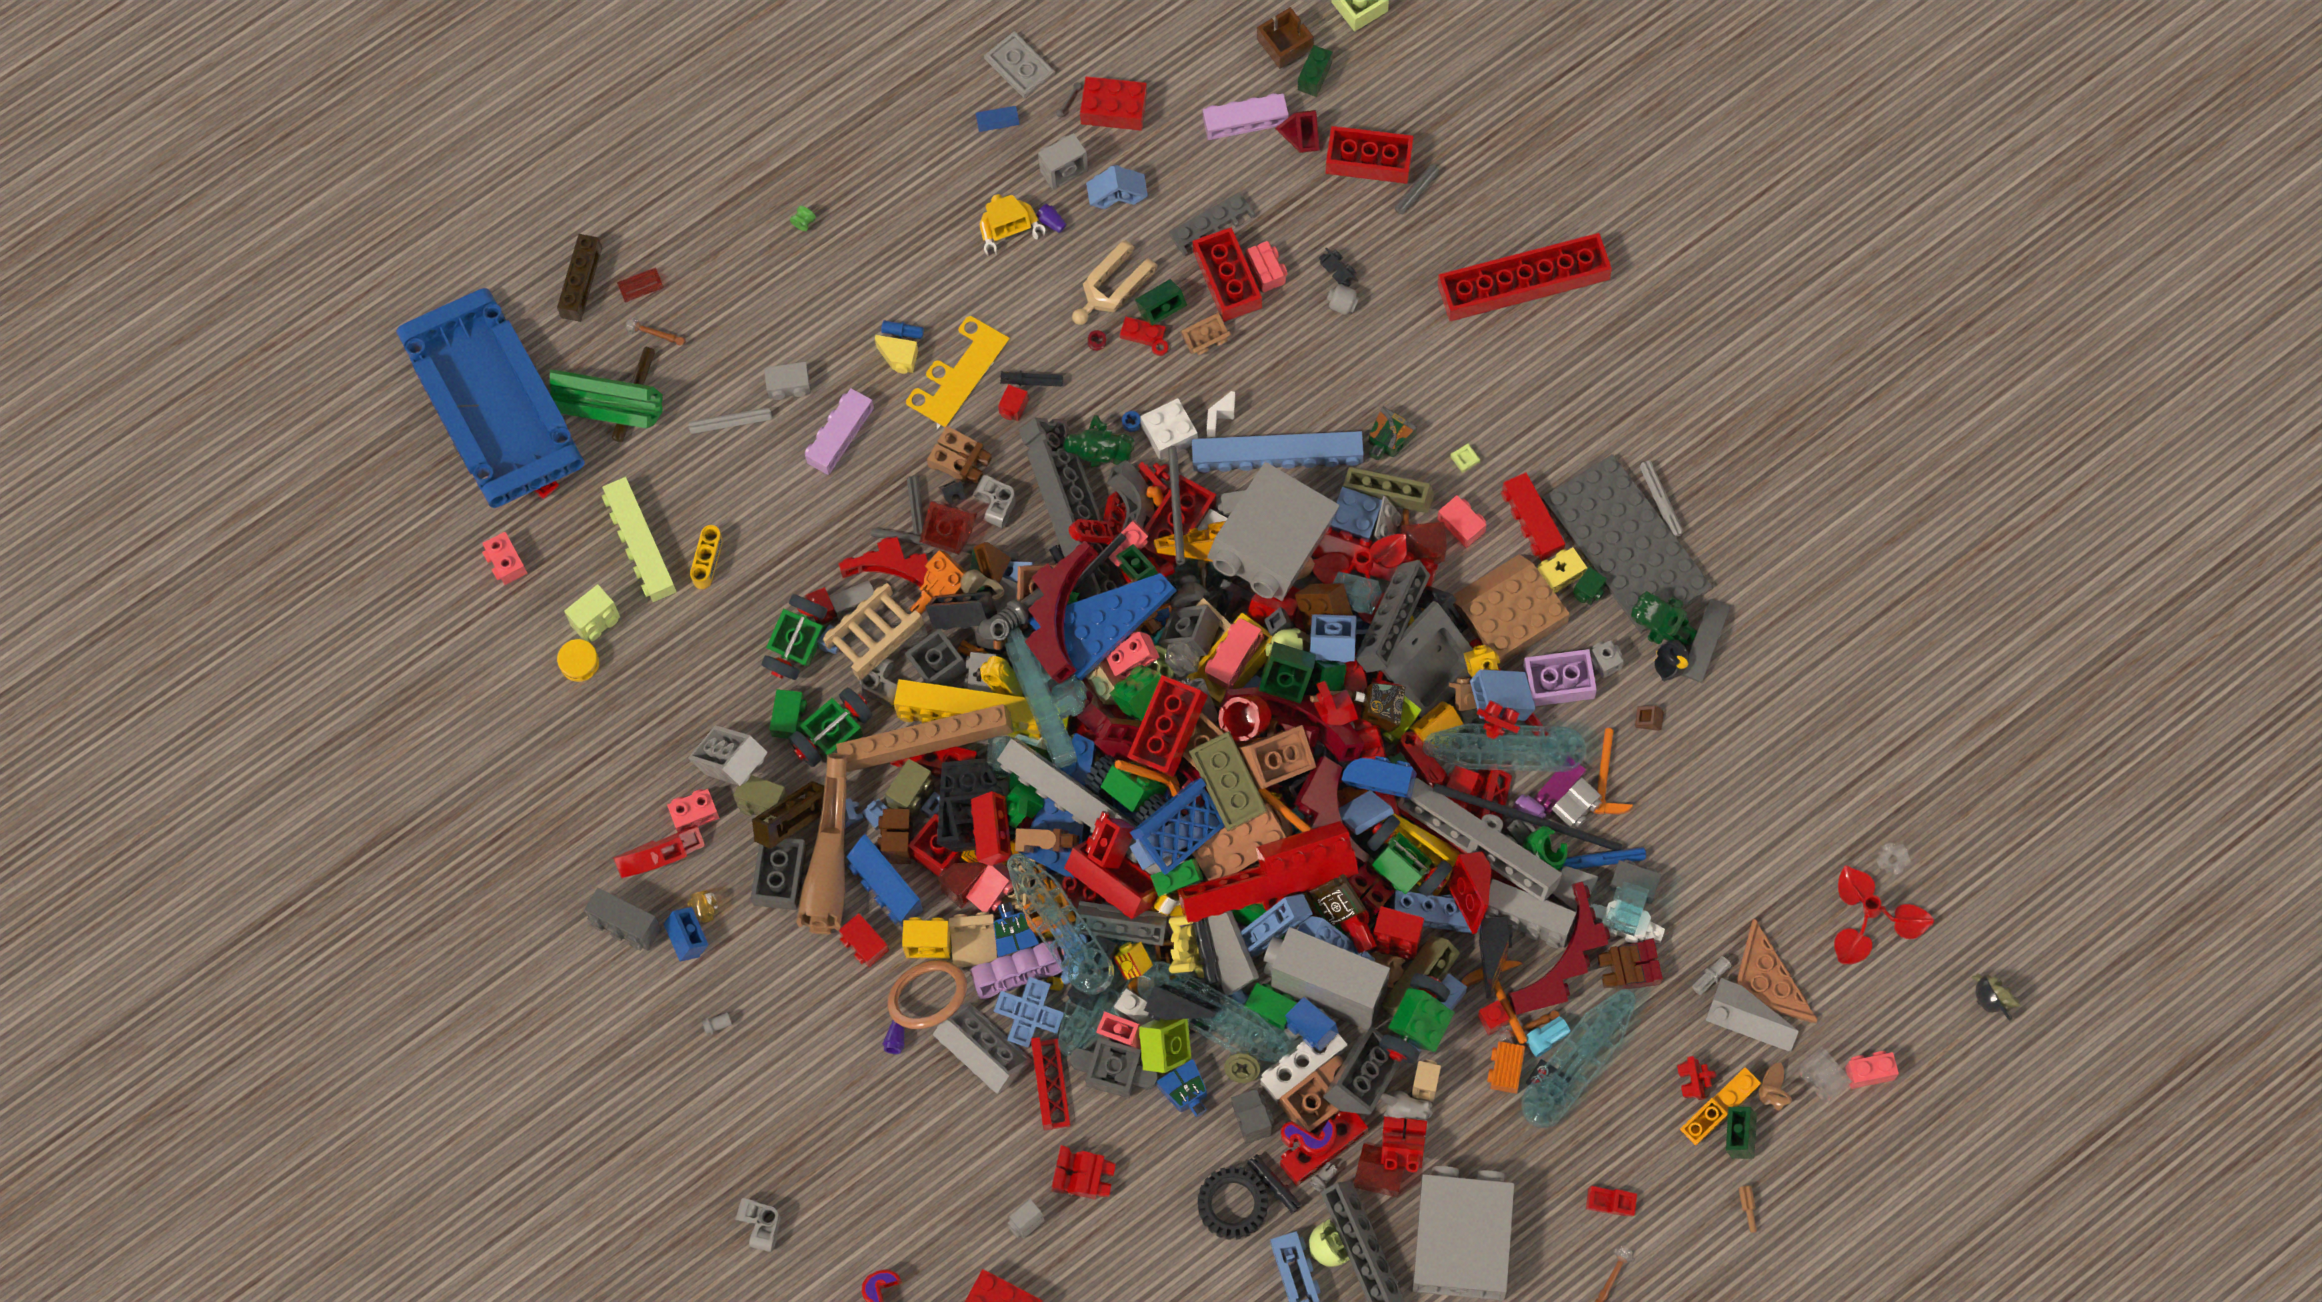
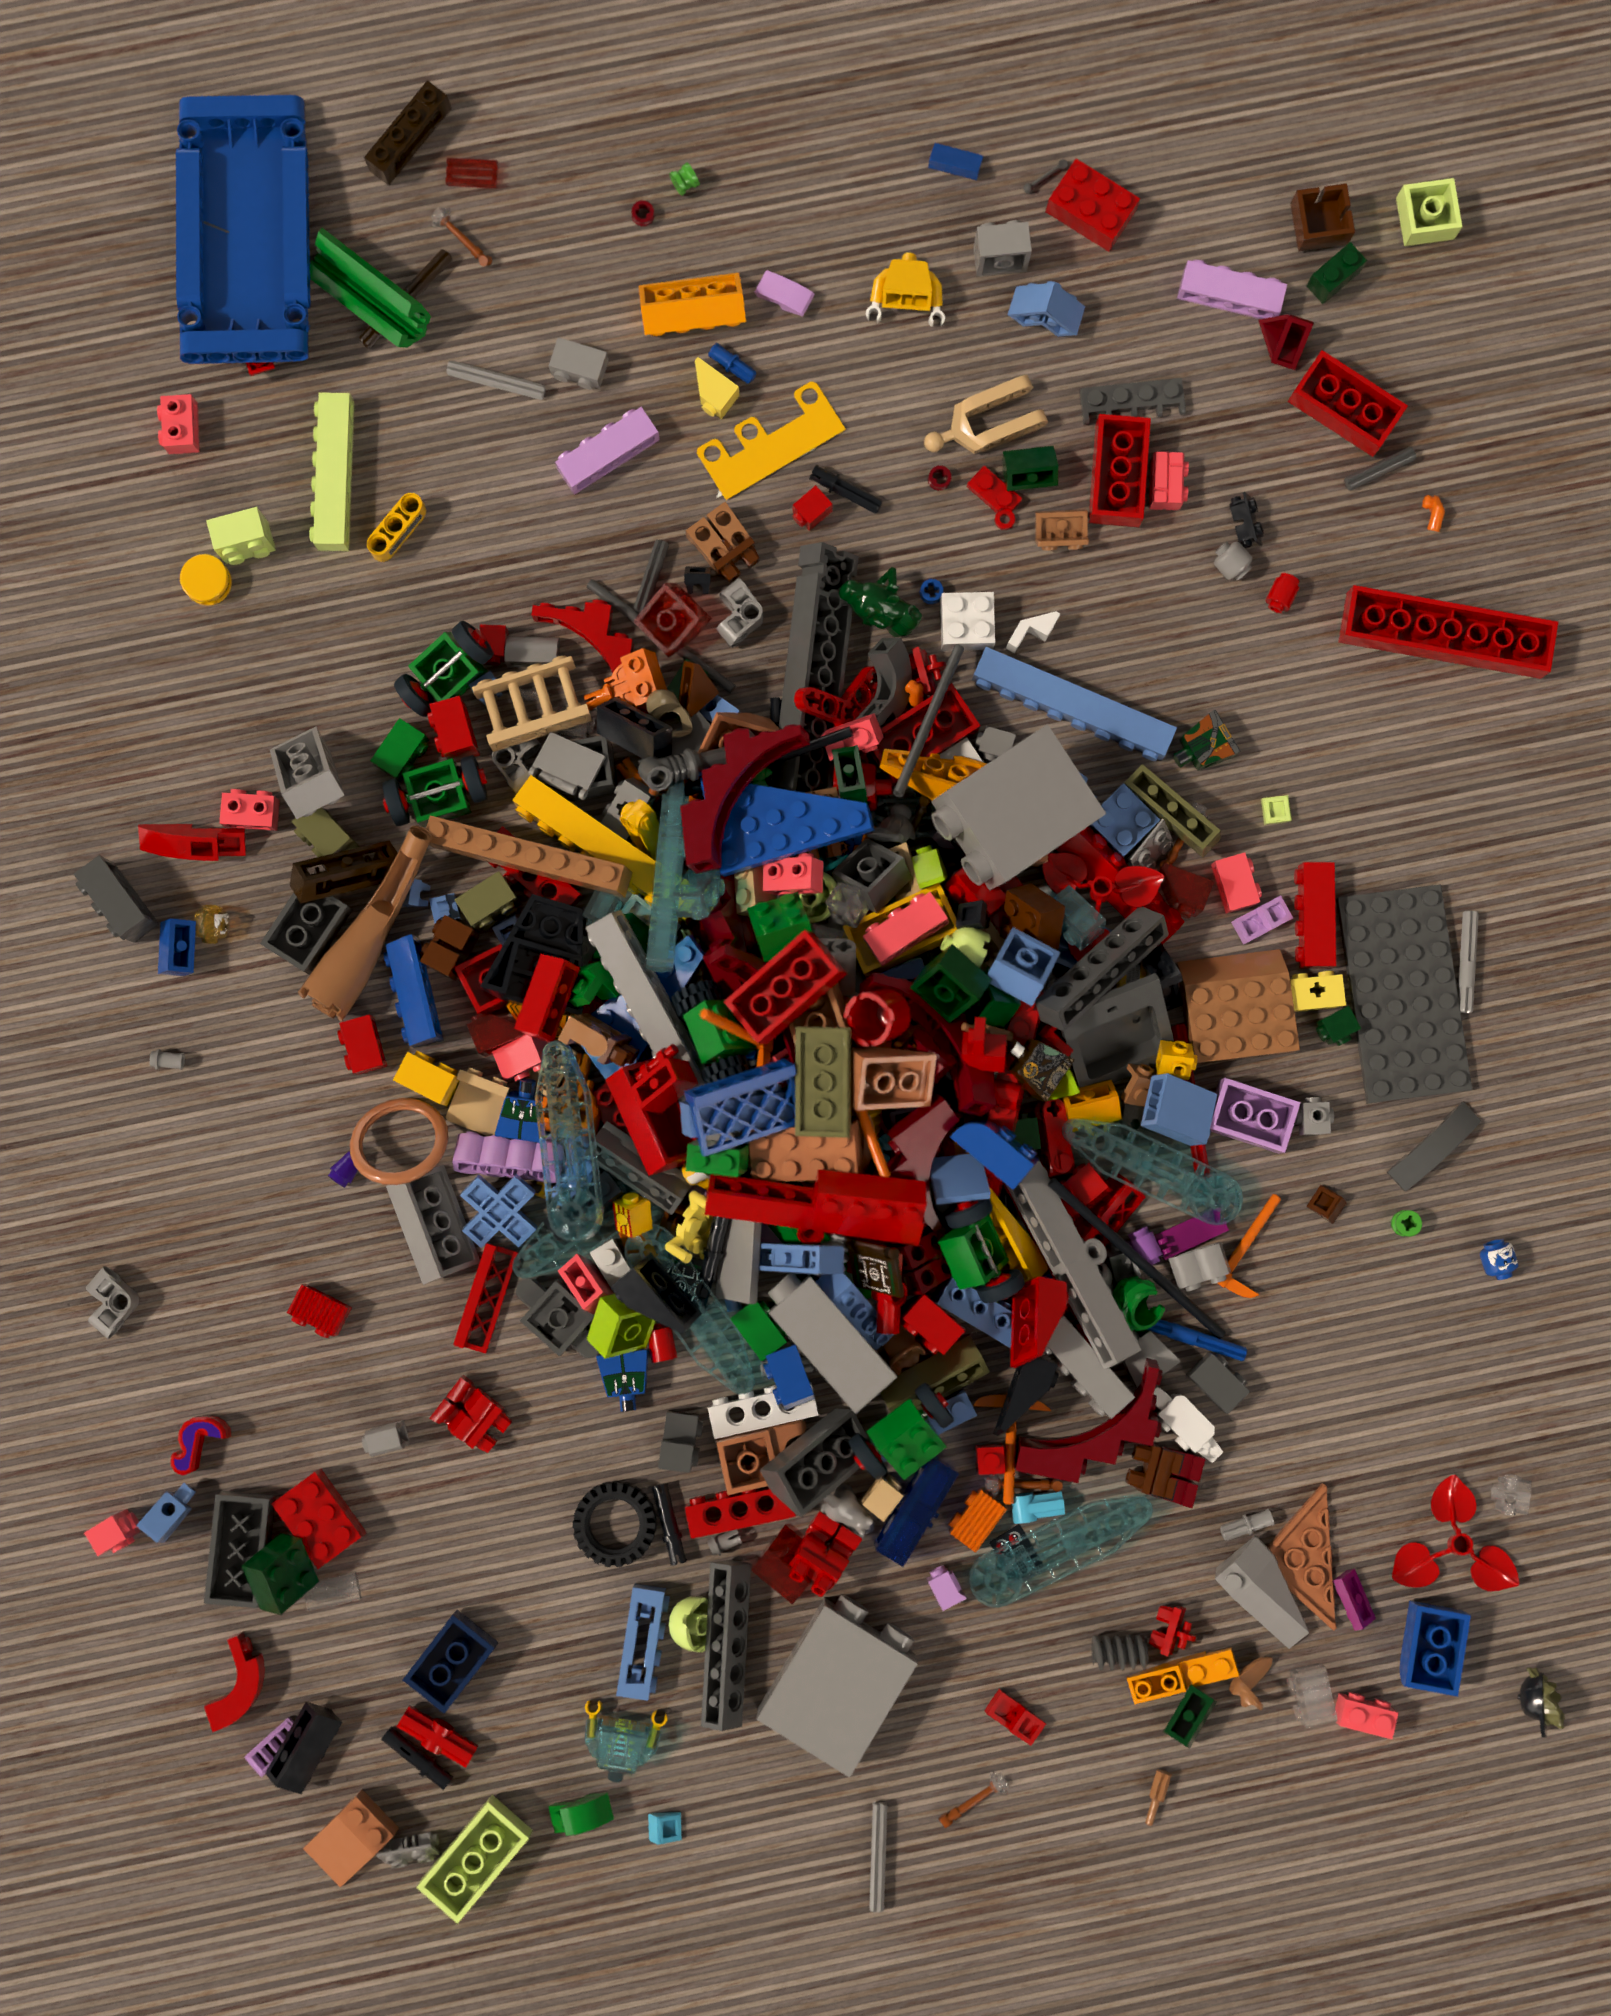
camera: 20 degrees right, 15 degrees up
(778, 250) = (649, 216): none -> dark red bush
(821, 677) = (454, 729): none -> red brick
(852, 301) = (692, 304): none -> light orange slope
(916, 263) = (785, 292): none -> lavender slope
(922, 662) = (567, 765): none -> light grey piece
(925, 1152) = (319, 1311): none -> red brick
(1019, 64) = (1010, 108): light grey tile -> none
(1051, 218) = (957, 309): dark purple cone -> none
(1202, 1052) = (662, 1344): none -> red brick
(1229, 606) = (929, 867): none -> lime slope
(1242, 1075) = (695, 1382): olive gear -> none
(1308, 1142) = (722, 1506): red animal -> none
(1390, 305) = (1282, 593): none -> red brick
(1456, 1077) = (915, 1510): none -> clear blue brick
(1473, 199) = (1437, 512): none -> orange arm
(1492, 714) = (1156, 1143): red hips -> none
(1495, 539) = (1262, 920): none -> lavender slope
(1508, 1128) = (945, 1587): none -> lavender window
(1628, 908) = (1194, 1417): clear light blue brick -> none
(1663, 619) = (1399, 1105): dark green piece -> none
(1663, 1111) = (1119, 1652): none -> dark grey piece
(1671, 659) = (1384, 1154): black hair -> none
(1712, 707) = (1400, 1222): none -> bright green wheel
(1795, 695) = (1499, 1259): none -> blue head
(1819, 990) = (1354, 1599): none -> magenta plate
(1894, 993) = (1434, 1648): none -> blue brick

